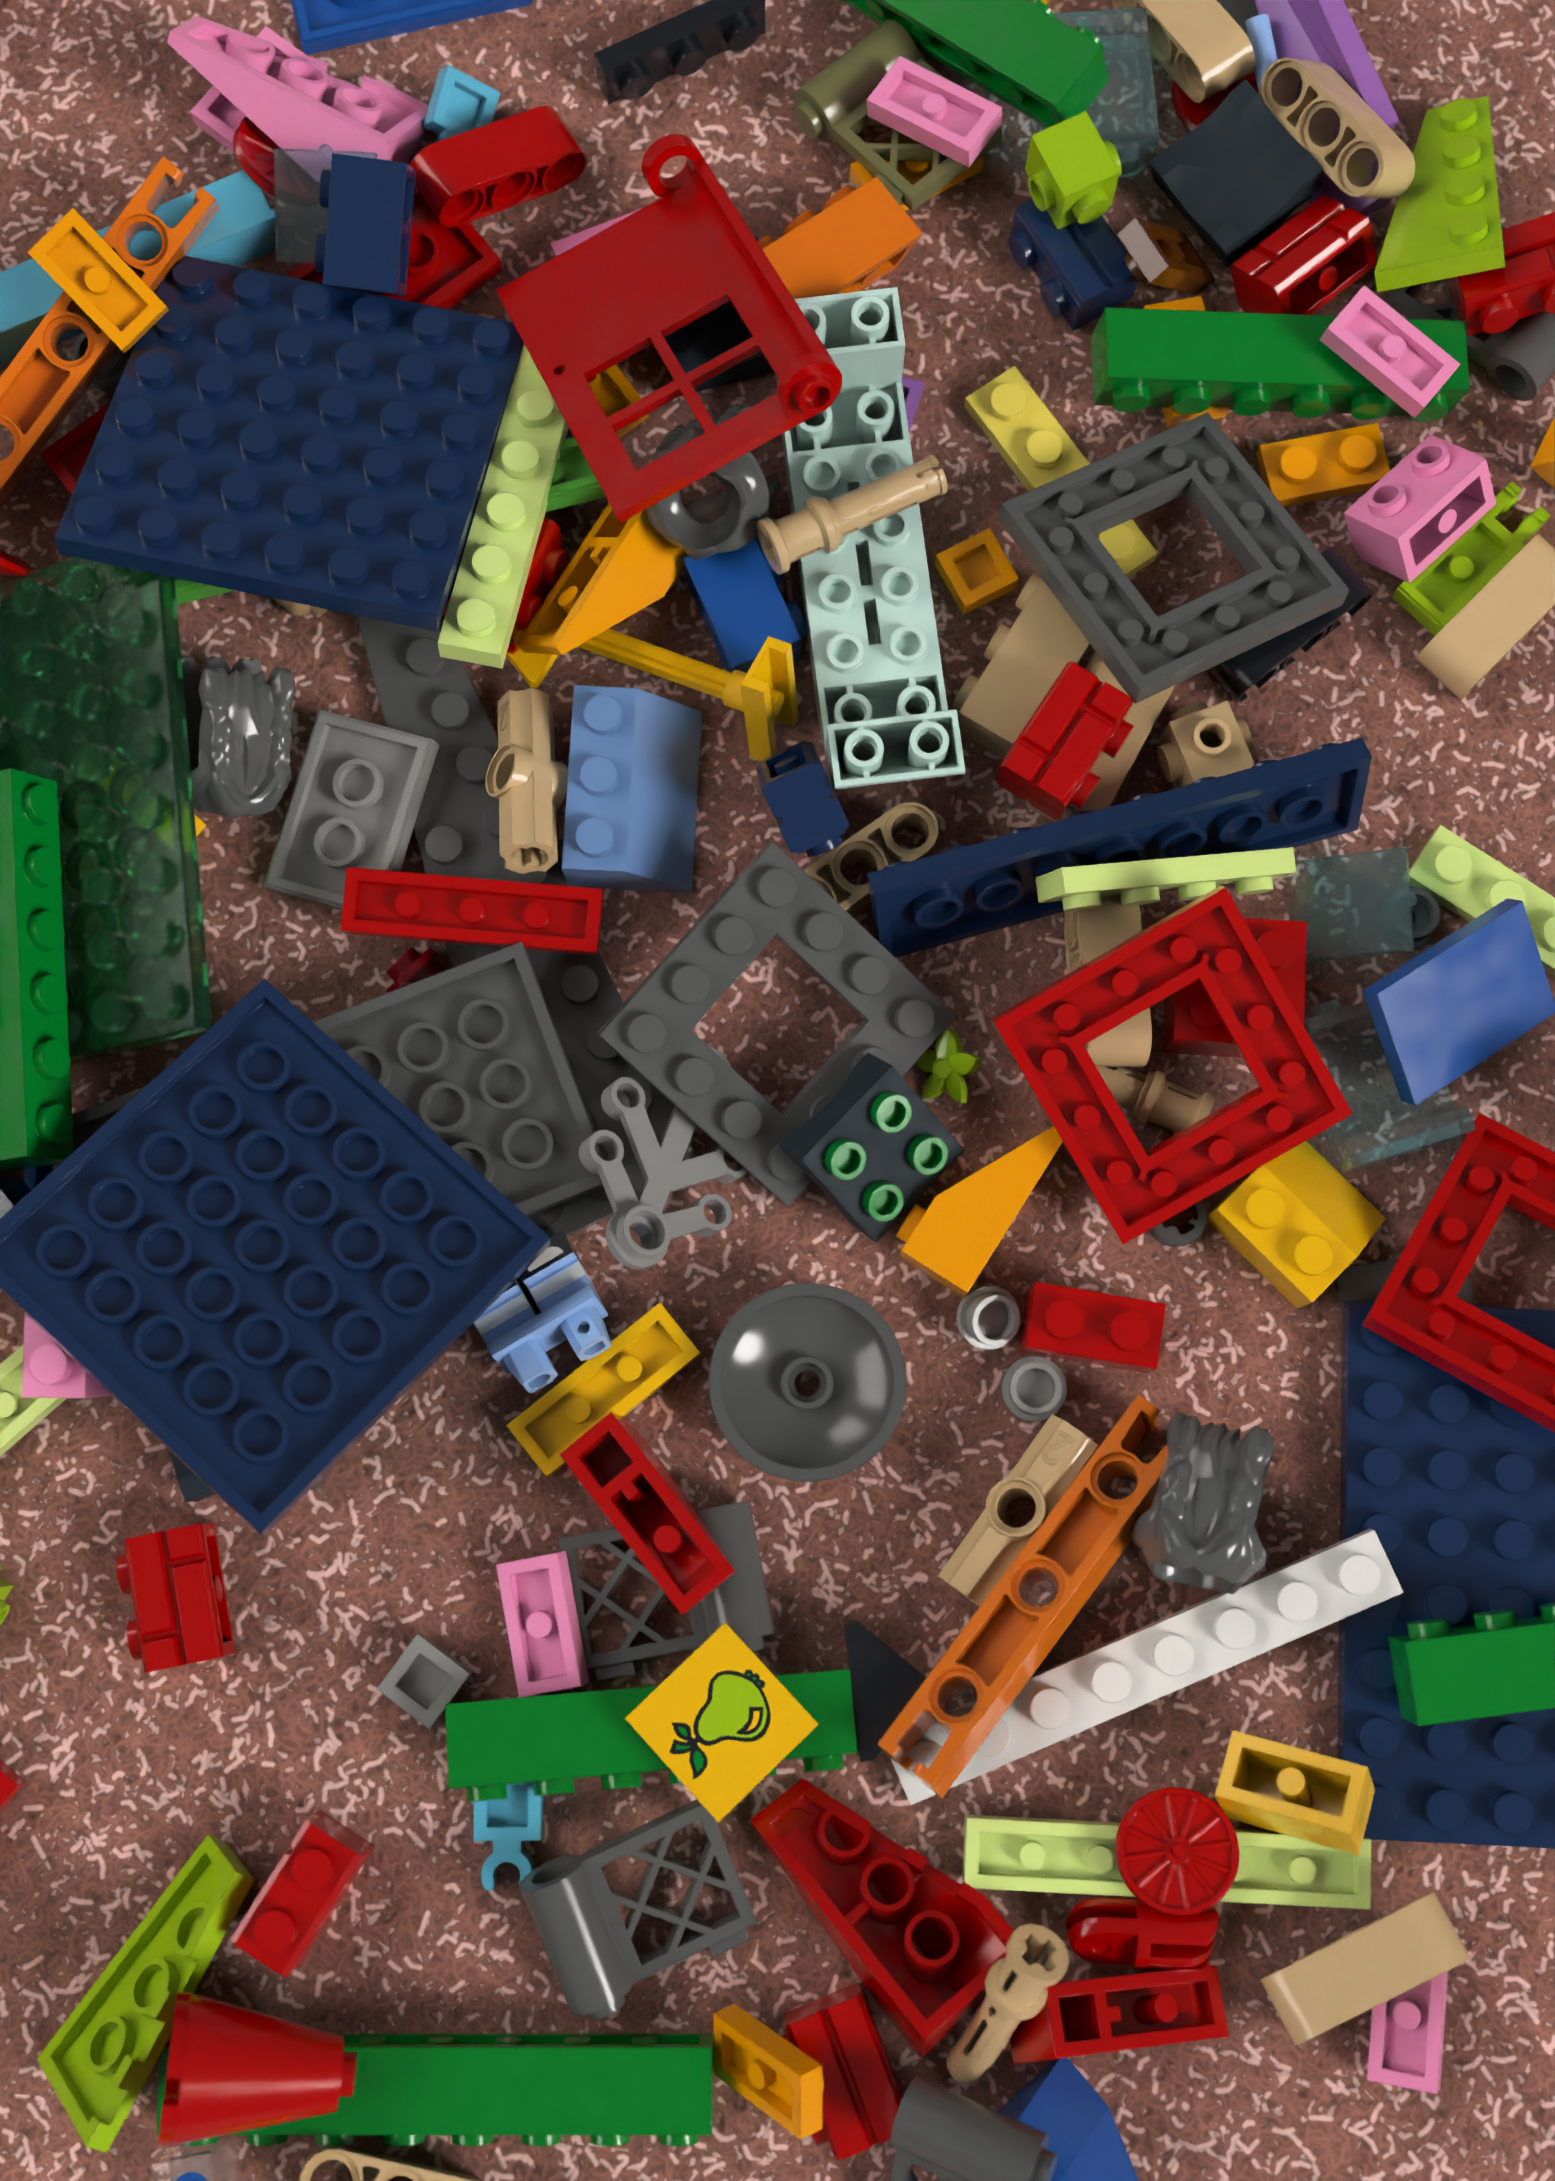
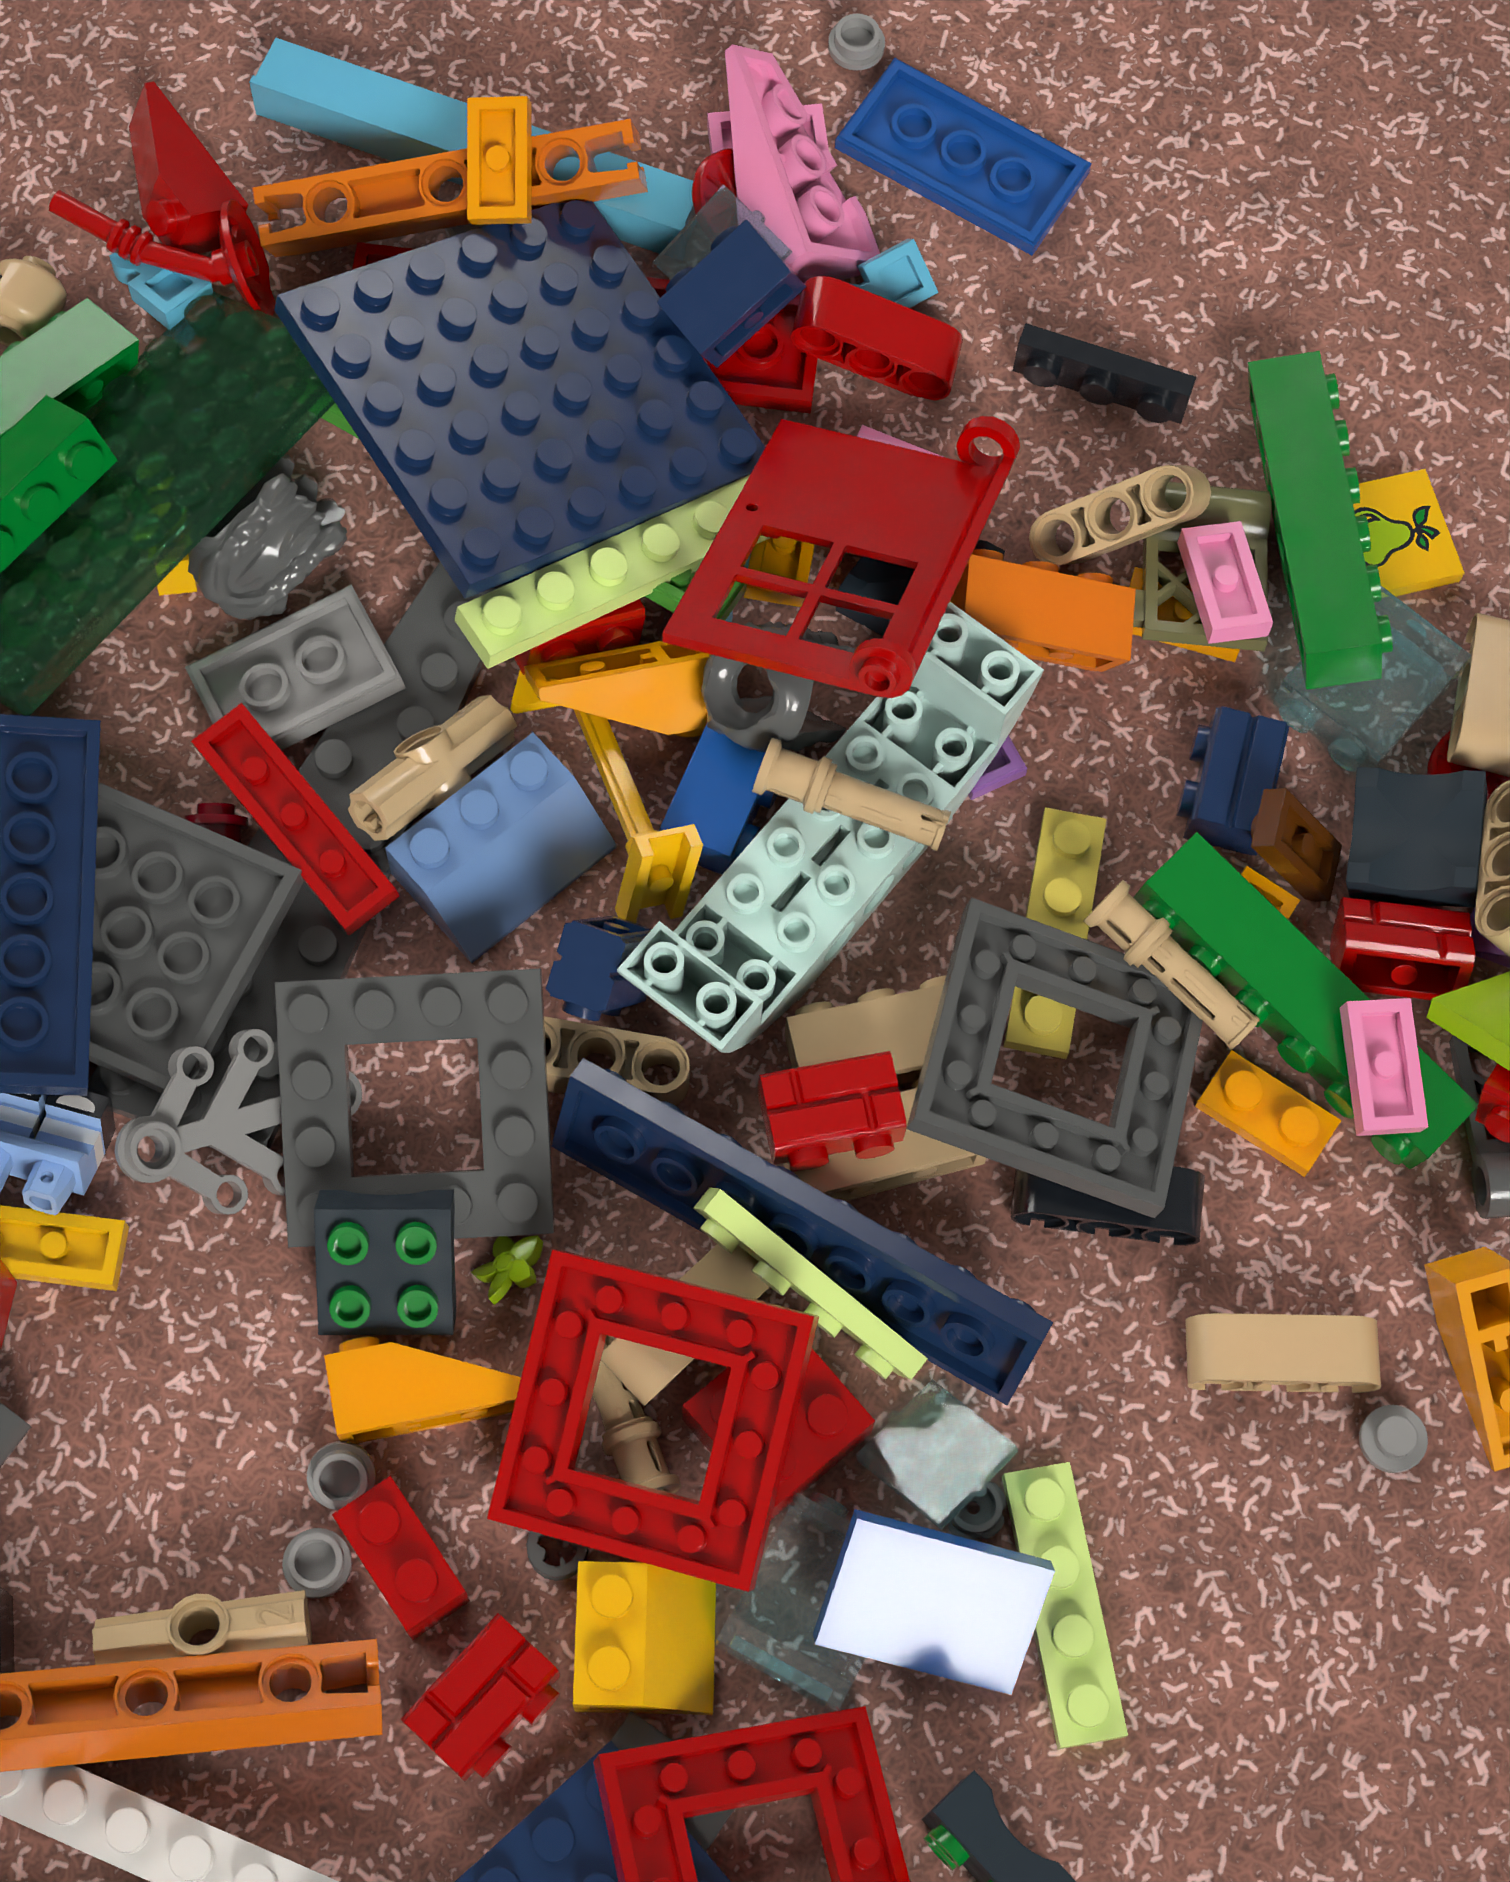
camera: 40 degrees right, 10 degrees down
(810, 164) = (1091, 515): none -> tan beam
(815, 1332) = (129, 1345): dark grey dish -> none
(976, 571) = (918, 936): light orange plate -> none
(1072, 171) = (1279, 716): lime brick -> none
(1152, 418) = (1150, 944): none -> tan pin
(1204, 743) = (952, 1203): tan brick -> none
(1206, 1506) = (335, 1772): dark grey piece -> none
(1240, 1359) = (483, 1699): none -> red brick
(1420, 508) = (1300, 1210): bright pink brick -> none
(1468, 564) = (1305, 1285): lime hinge -> none

